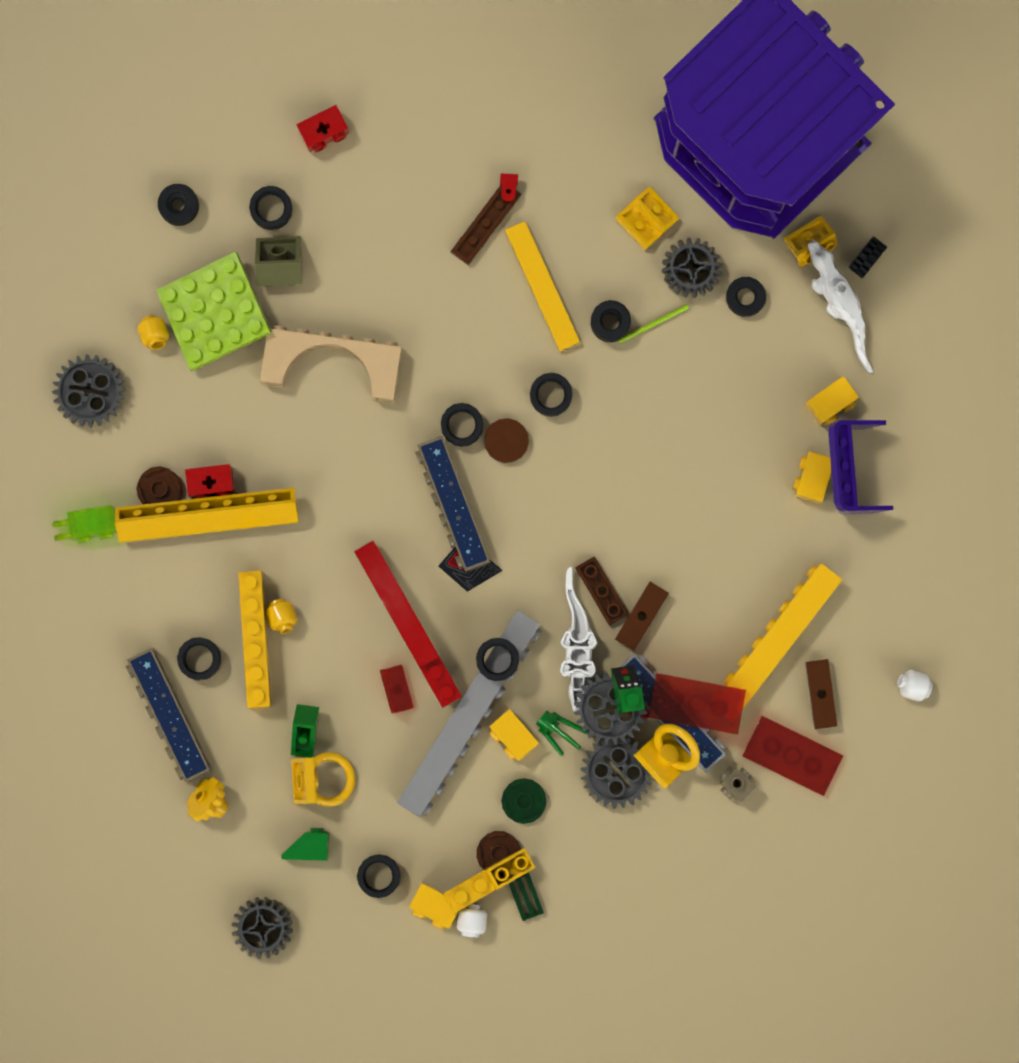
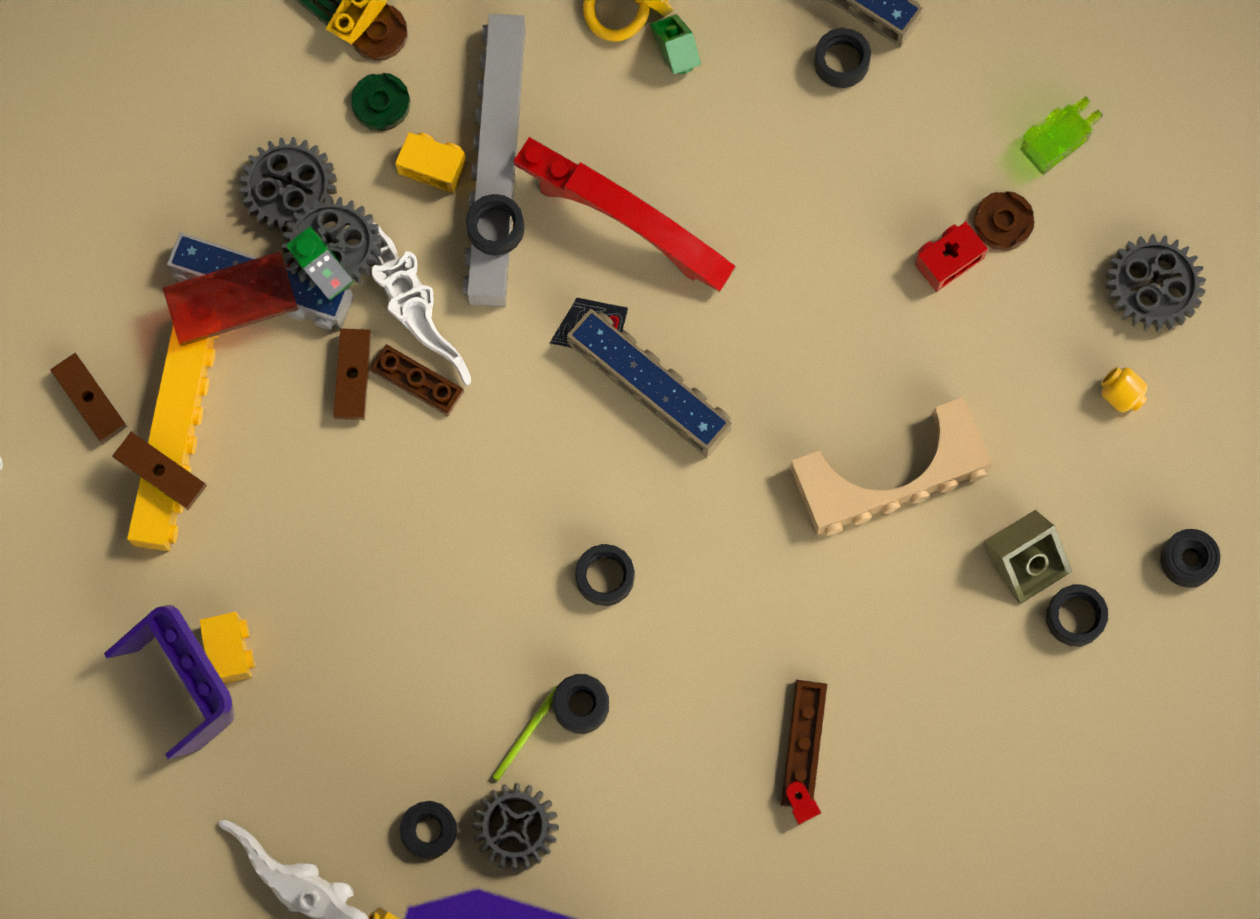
camera: 155 degrees right, 10 degrees down
(206, 515) = (930, 214): yellow brick -> none
(213, 311) = (1068, 451): lime plate -> none
(255, 639) = (791, 109): yellow brick -> none
(281, 616) = (776, 151): yellow head -> none
(329, 119) = (1088, 738): red brick -> none
(396, 689) = (597, 142): clear red panel -> none
(461, 407) = (684, 459): black tyre -> none
(506, 440) = (628, 493): reddish brown tile -> none
(542, 286) = (690, 703): yellow tile -> none
(549, 723) = (396, 196): green plant -> none
(647, 218) = (606, 862): yellow slope -> none
(665, 757) = (236, 223): yellow tile -> none
(745, 785) = (137, 241): dark tan brick -> none
(792, 755) = (88, 312): clear red plate -> none
(807, 623) = (146, 460): none -> reddish brown tile
(831, 401) = (250, 754): yellow brick -> none

